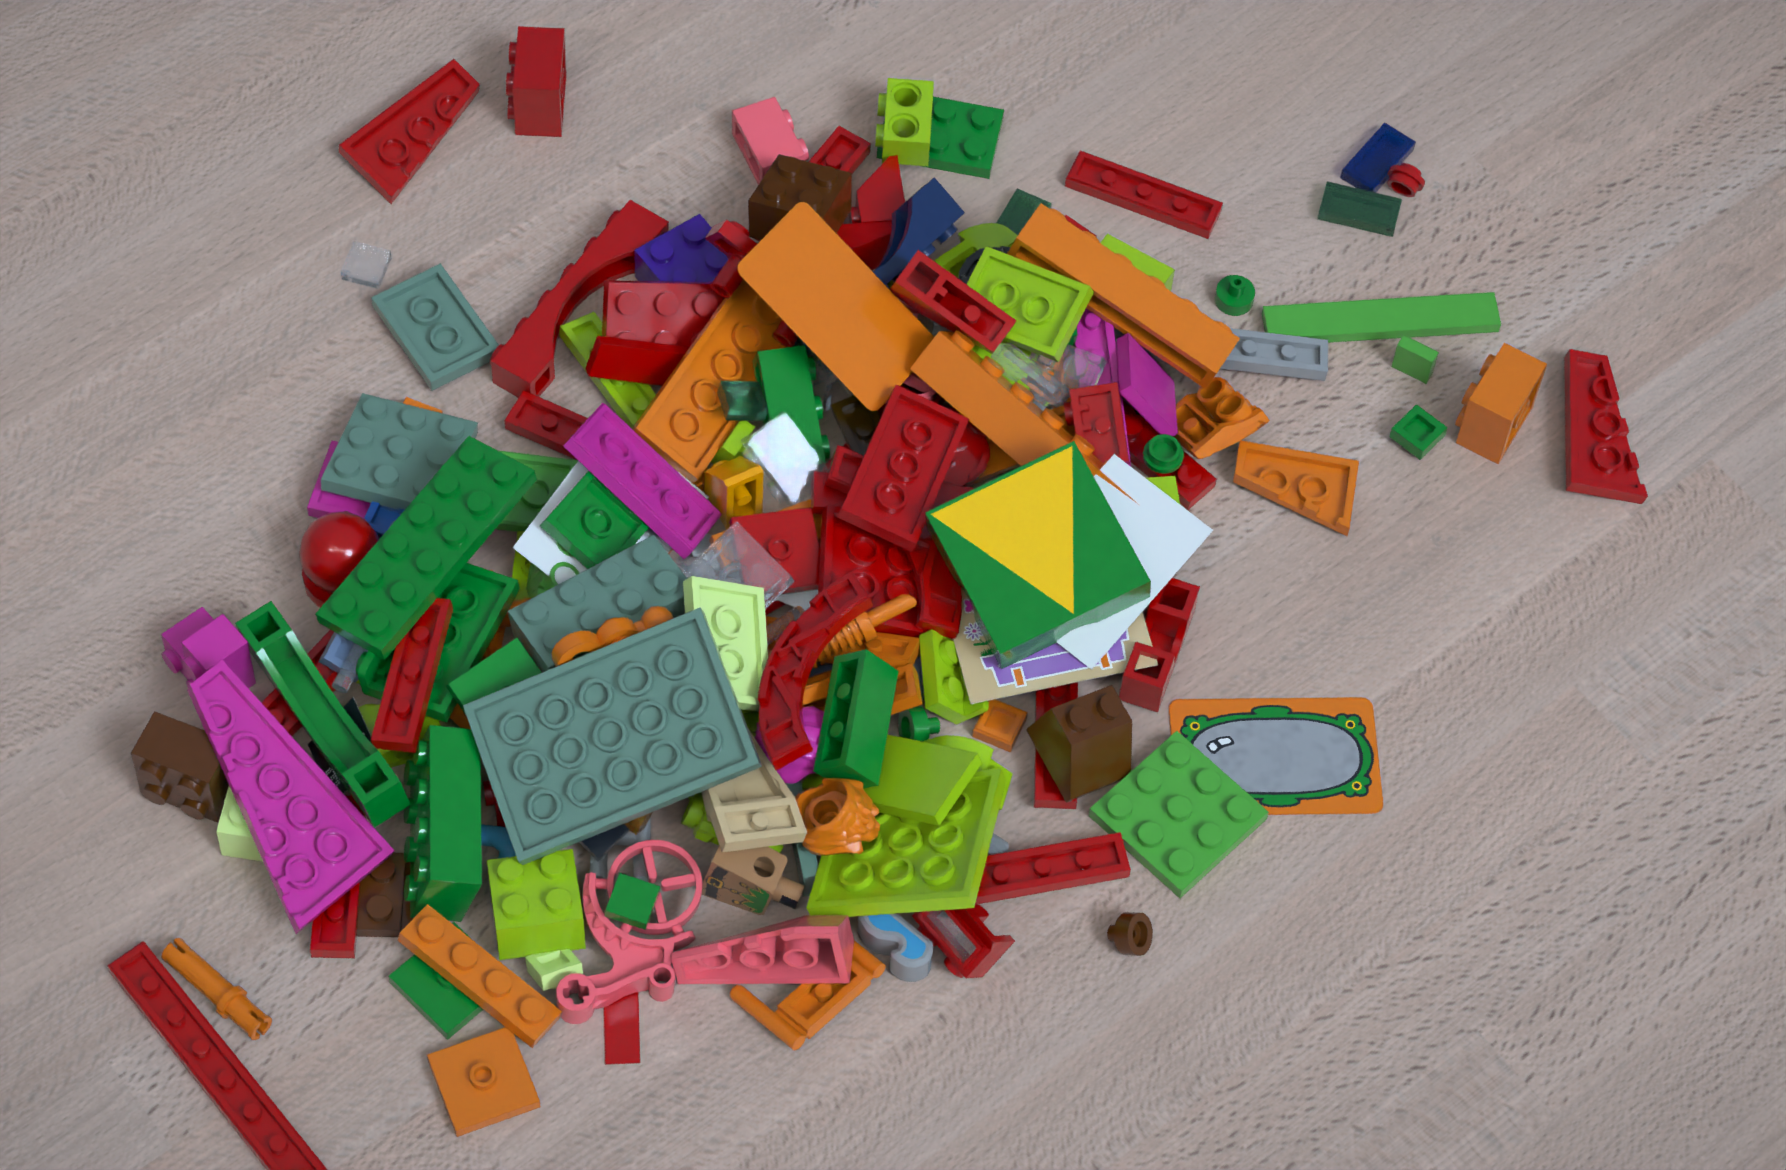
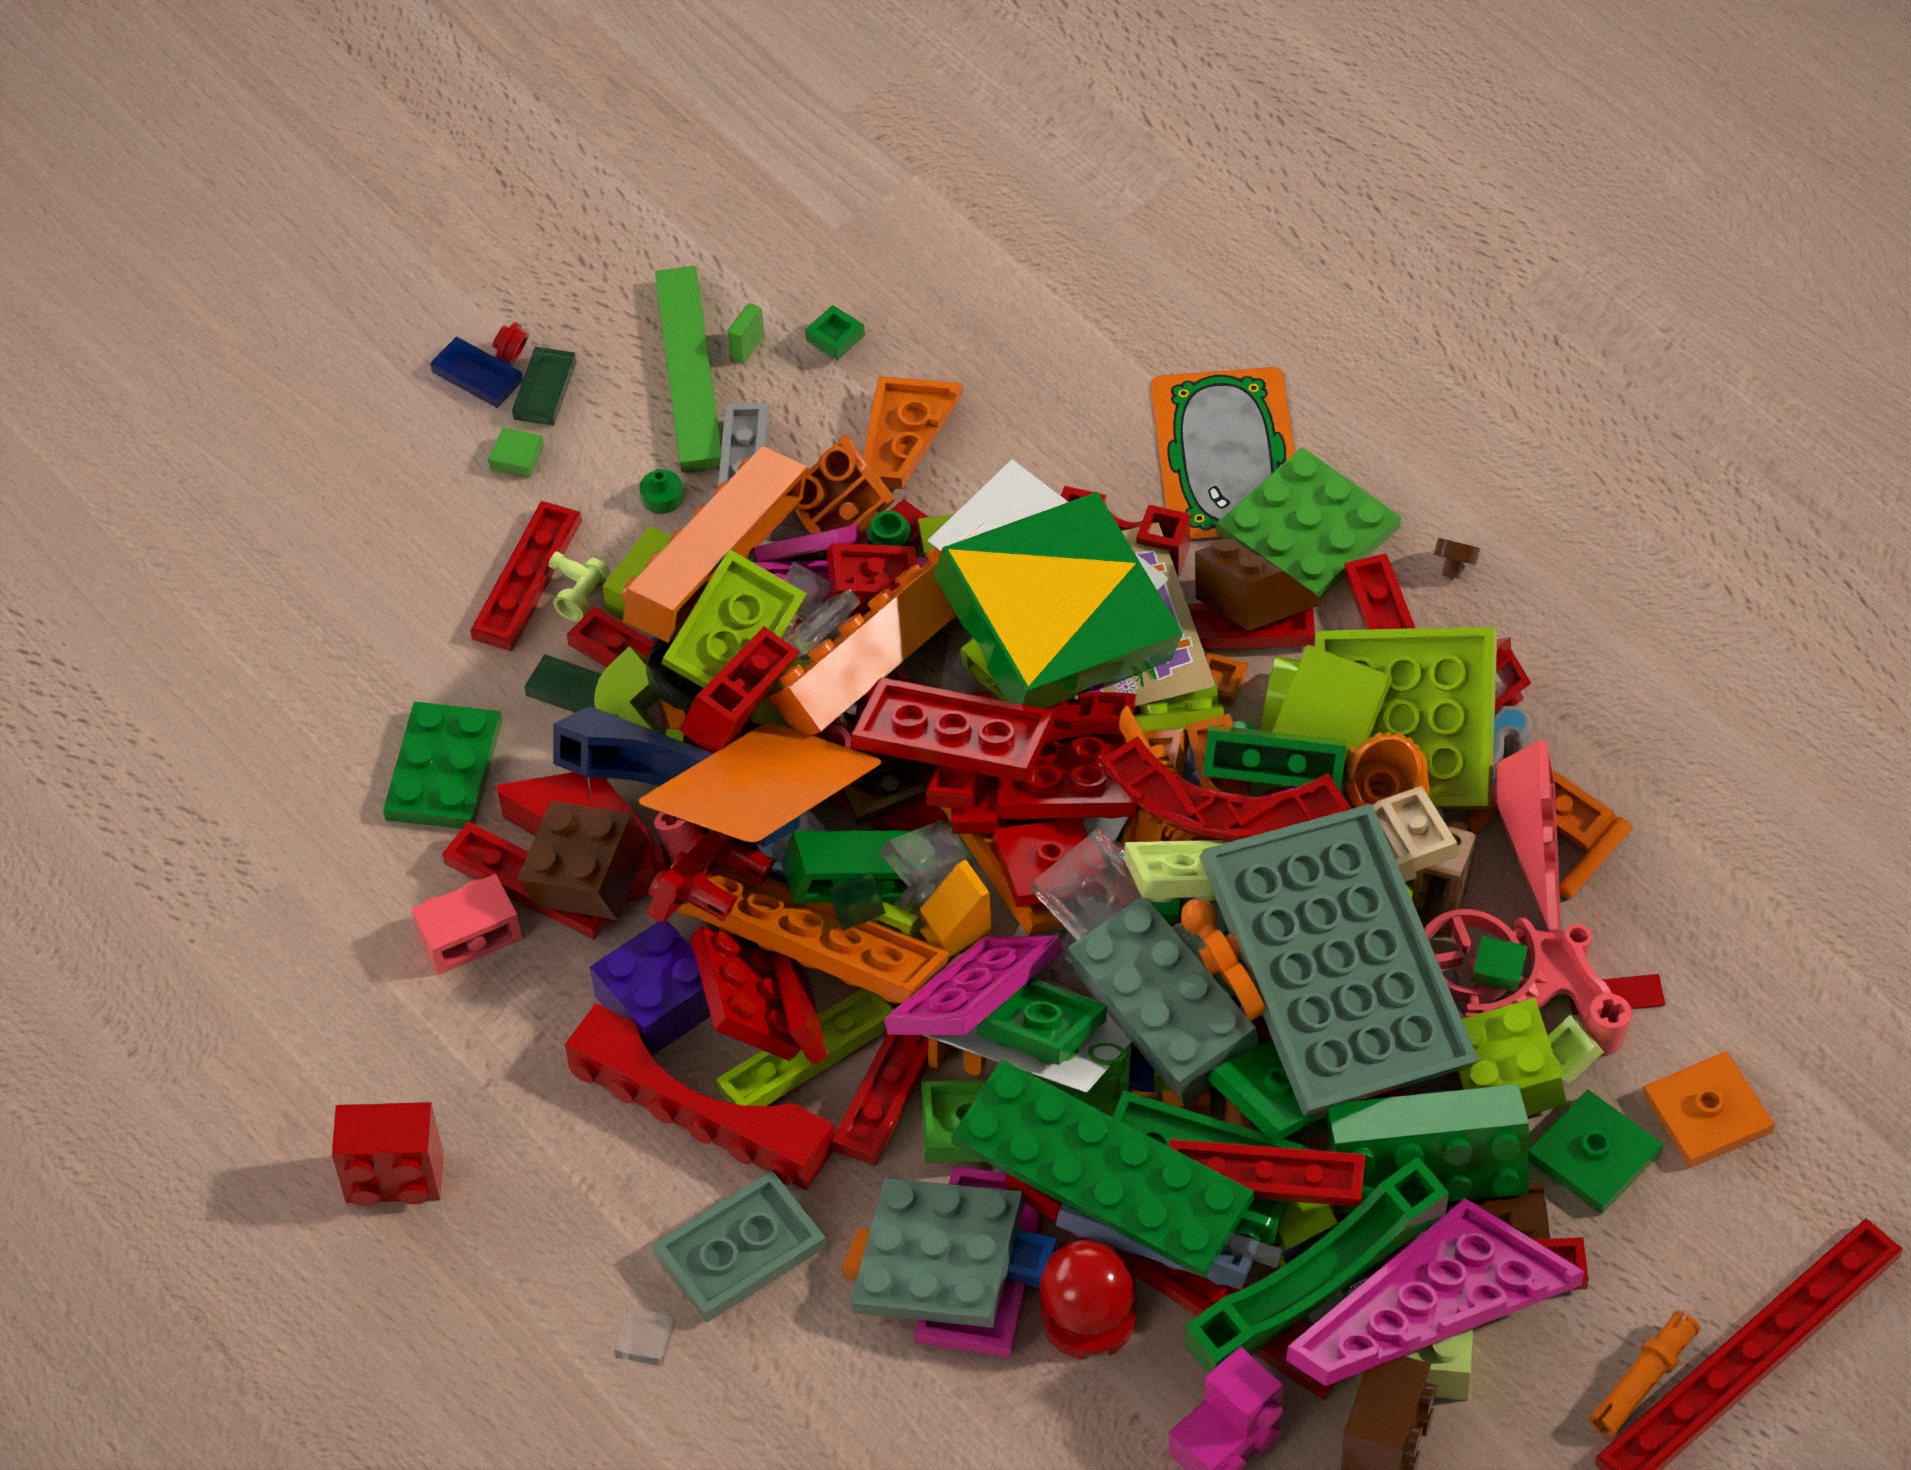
camera: 85 degrees left, 5 degrees down
(407, 132) = (453, 1313): red wing -> none
(479, 976) = (1597, 1111): orange plate -> none
(907, 121) = (451, 769): lime brick -> none
(1134, 235) = (573, 602): none -> yellowish green piece
(1282, 187) = (516, 452): none -> bright green tile
(1499, 402) = (810, 252): orange brick -> none
(1595, 433) = (820, 193): red wing -> none

